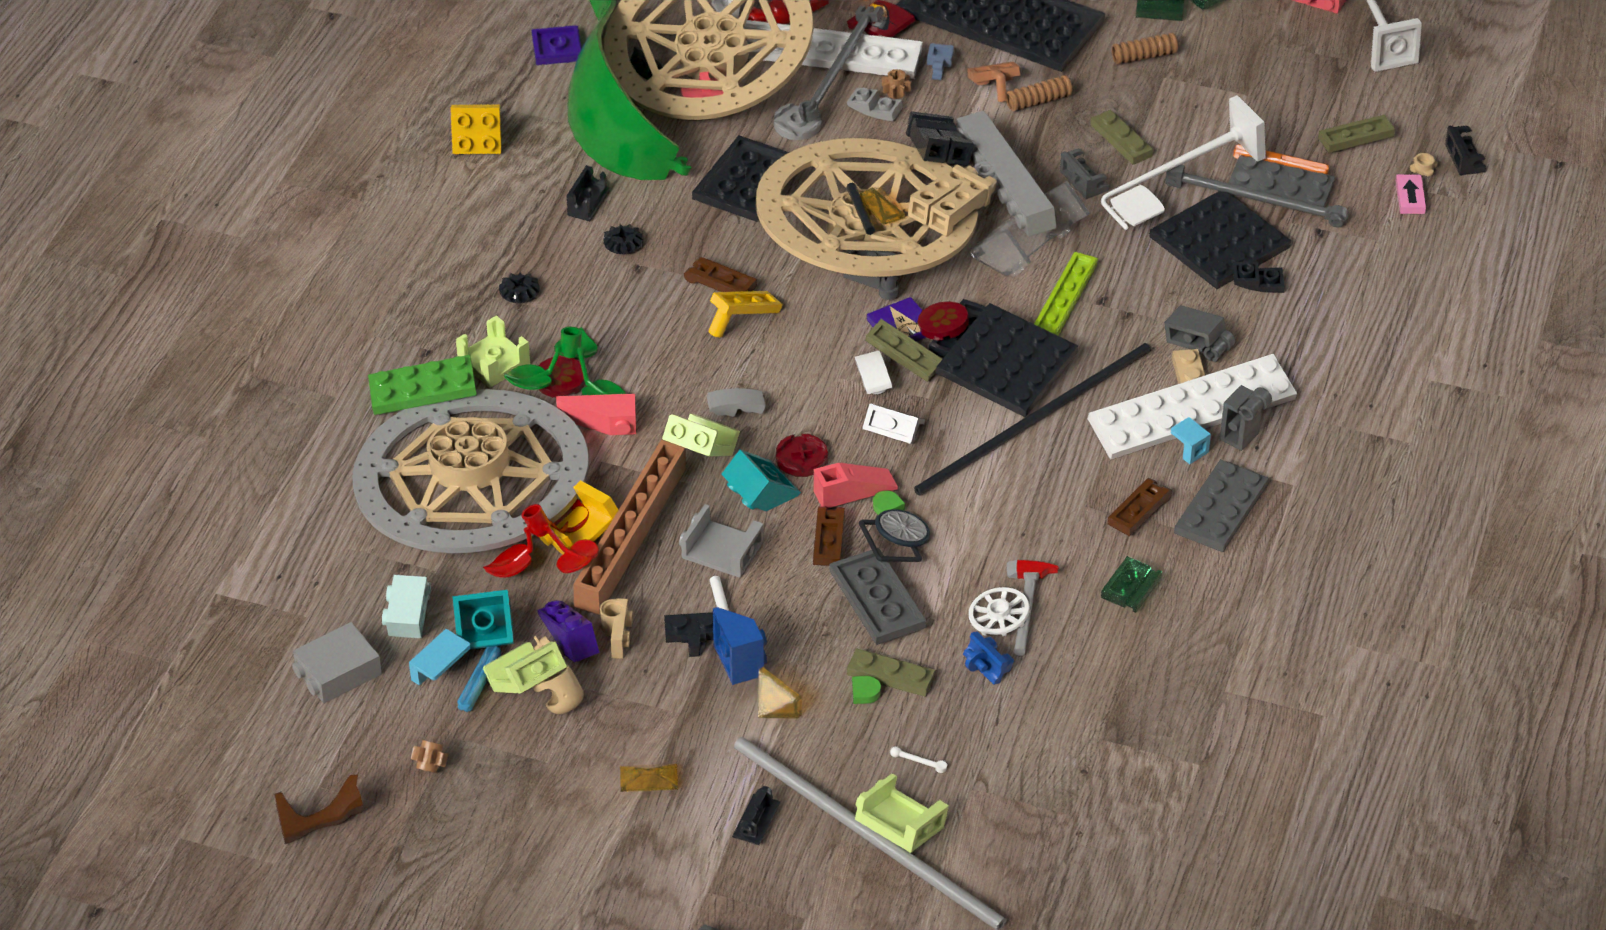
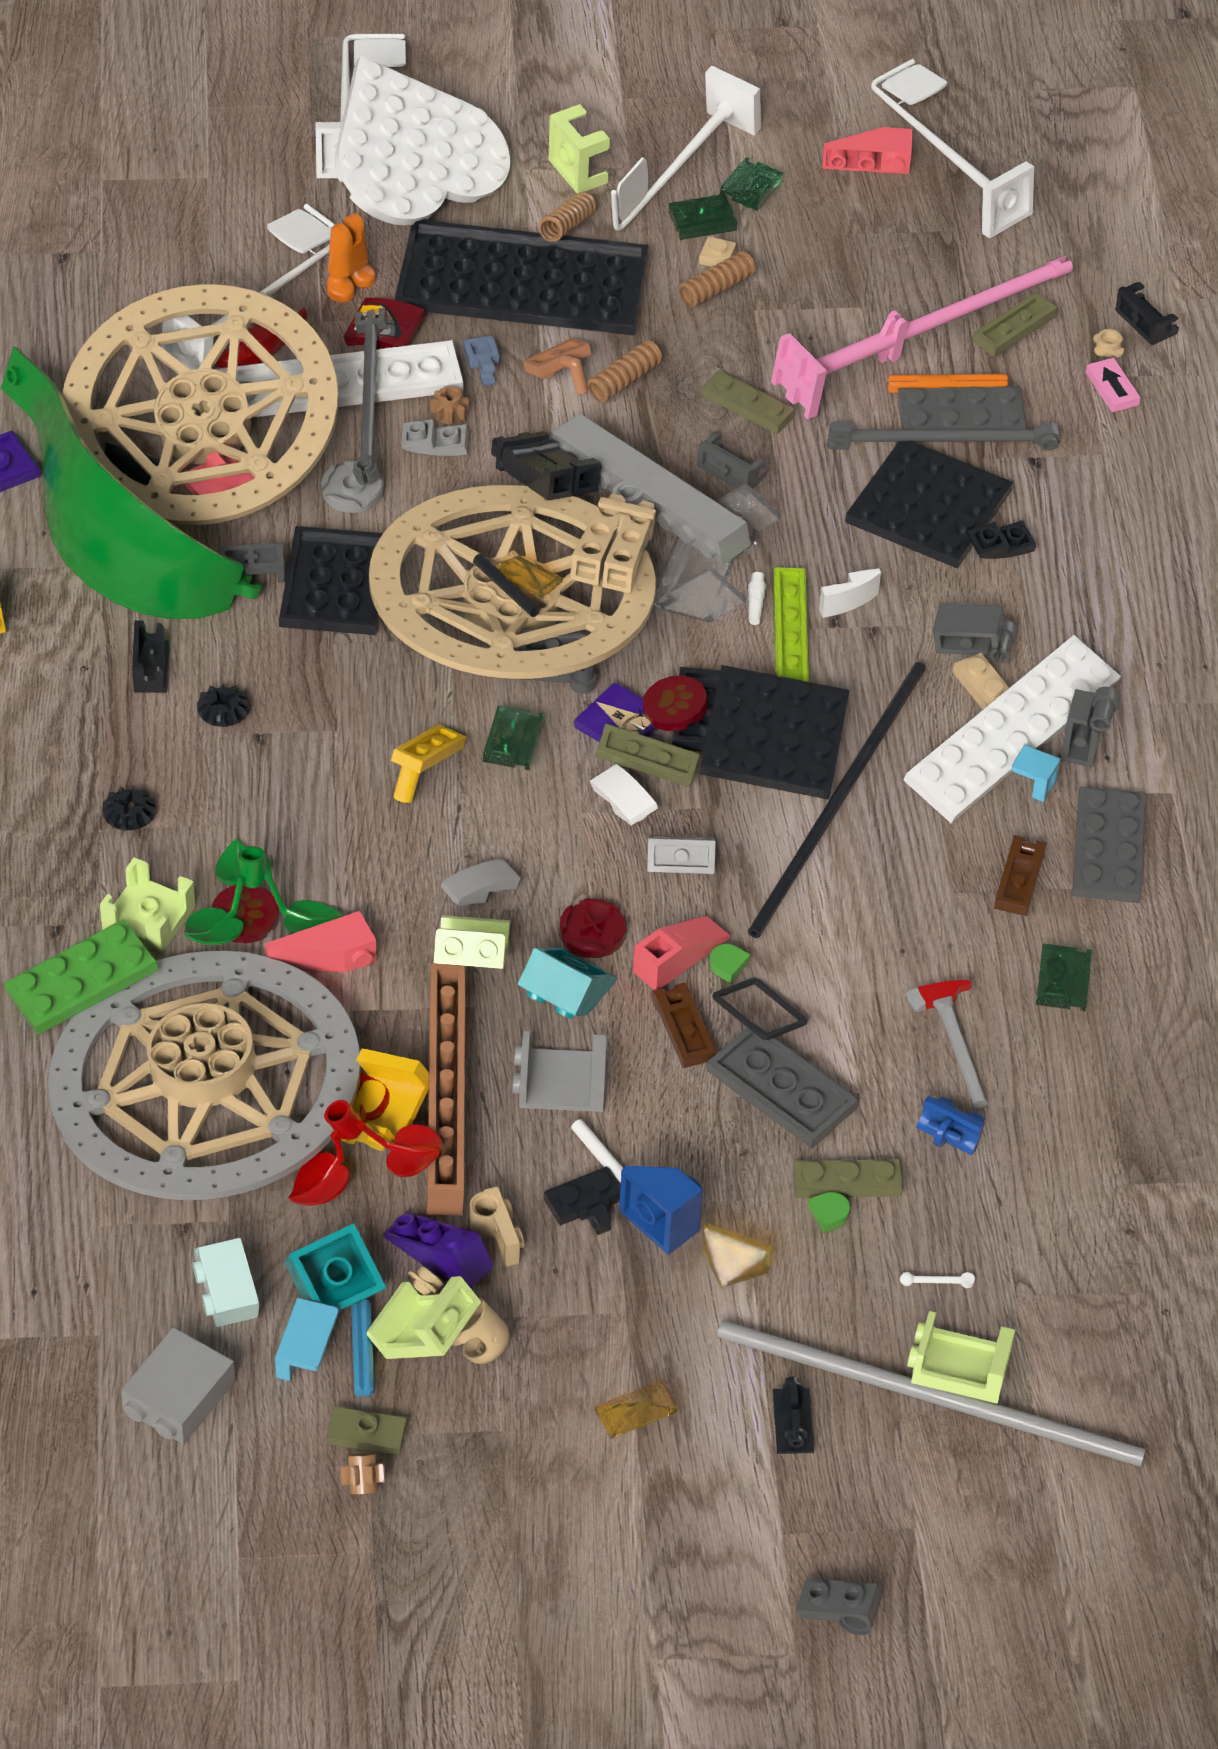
camera: 25 degrees left, 5 degrees up
(345, 804) = (242, 1622): reddish brown animal -> none
(451, 732) = (366, 1430): none -> olive plate
(697, 148) = (257, 558): none -> dark grey hinge
(719, 277) = (372, 723): reddish brown plate -> none
(815, 313) = (513, 737): none -> clear green plate
(902, 528) = (765, 987): light grey wheel -> none
(999, 611) = (932, 1060): white wheel -> none
(1050, 268) = (755, 597): none -> white animal
(1130, 282) = (841, 598): none -> white slope
(1141, 204) = (825, 487): white piece -> none
(1155, 28) = (716, 250): none -> tan plate
(1165, 124) = (805, 375): none -> bright pink piece

